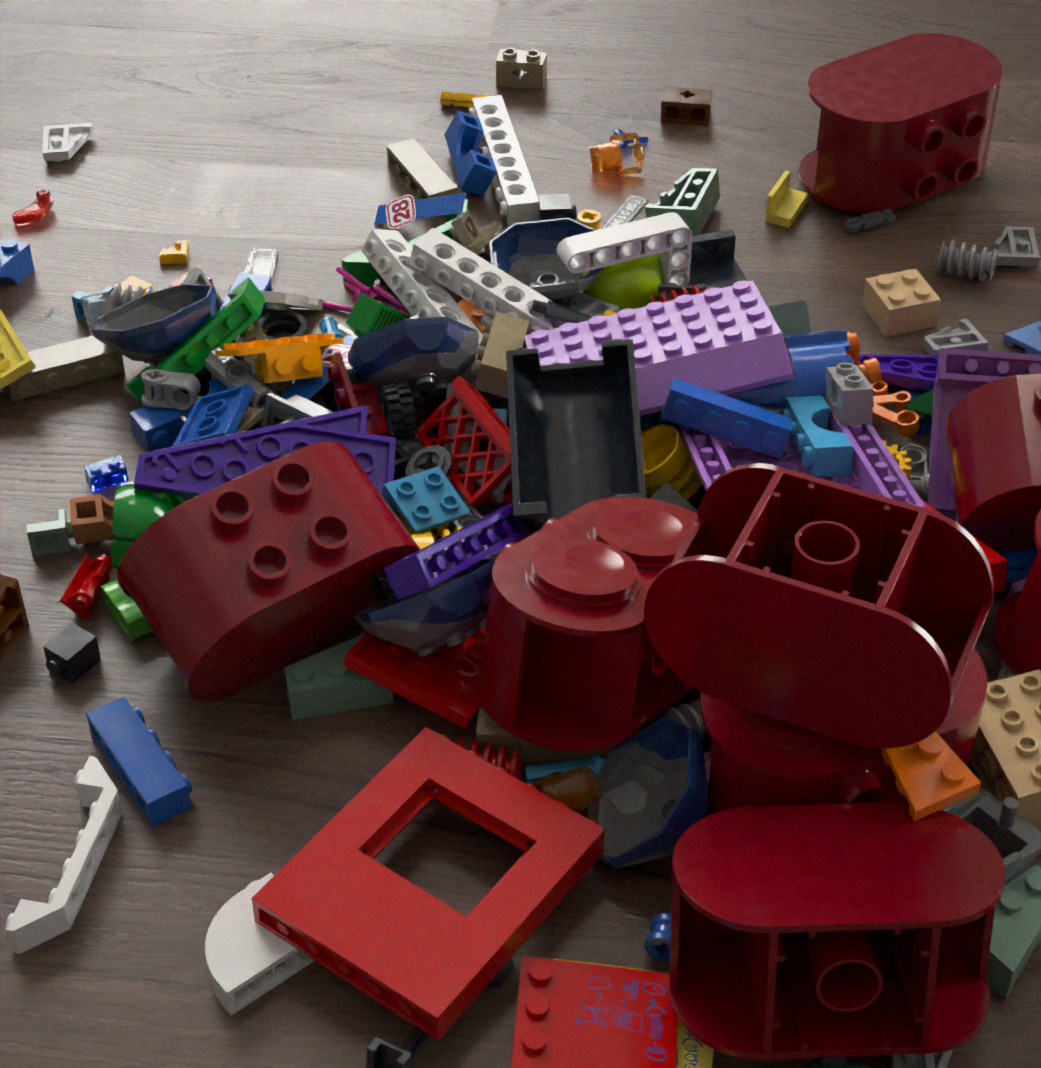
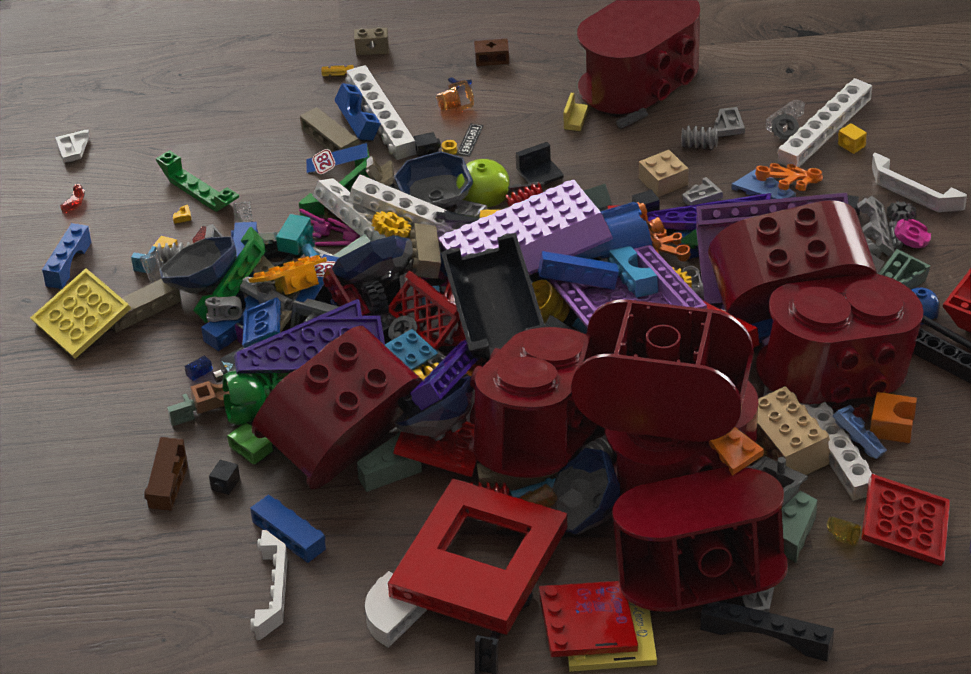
camera: 10 degrees left, 0 degrees up
(85, 585) = (216, 436): red hinge -> none
(204, 215) = (172, 168): none -> green slope
(317, 298) = (295, 234): none -> teal brick
(372, 315) = (335, 239): green brick -> none
(460, 306) = (390, 224): none -> yellow gear
(658, 942) = (609, 565): blue wheel -> none
(660, 235) = (503, 155): white beam -> none
(691, 198) = (511, 128): sand green wedge -> none
(849, 394) = (647, 243): light grey brick -> none
(870, 337) = (649, 199): none -> black brick

